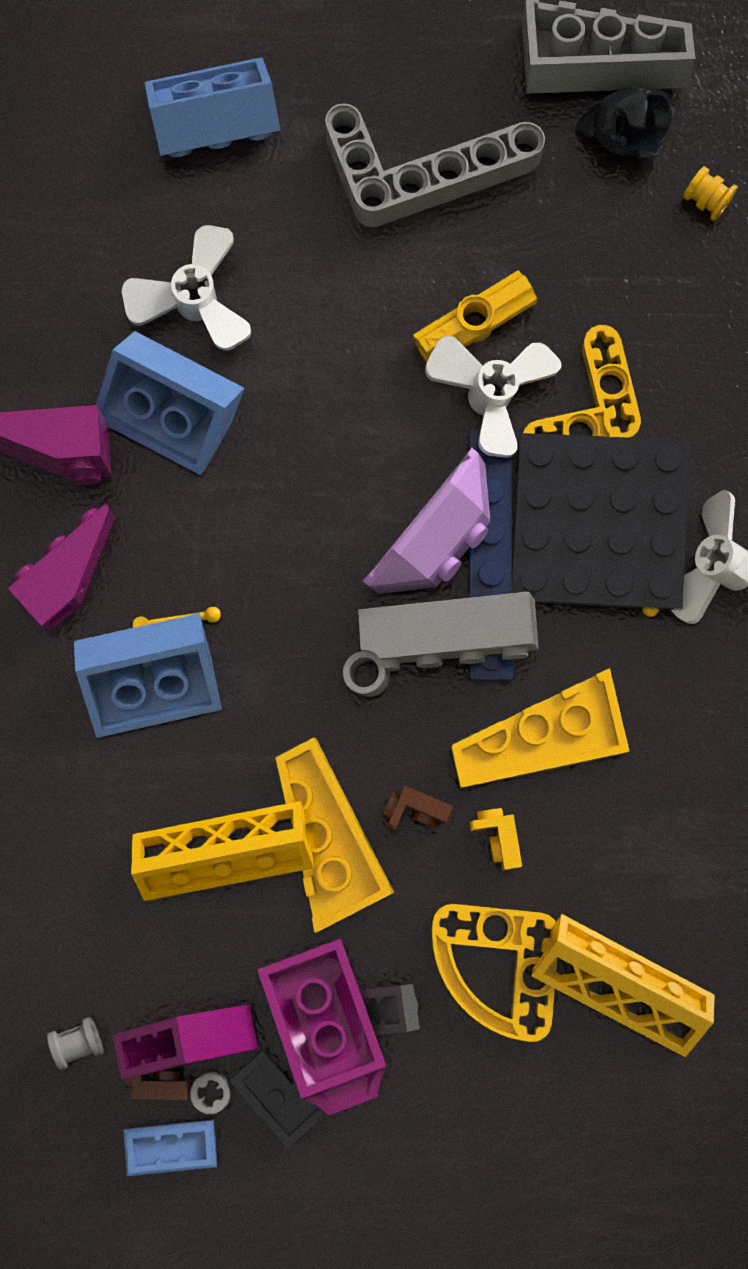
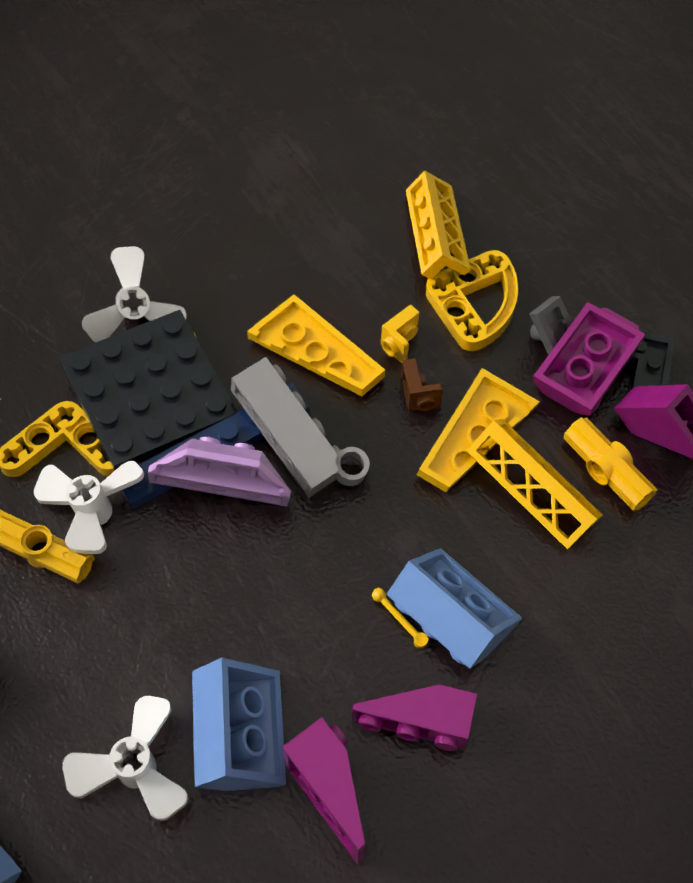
camera: 120 degrees left, 20 degrees down
(191, 950) = (610, 463): none -> yellow piece

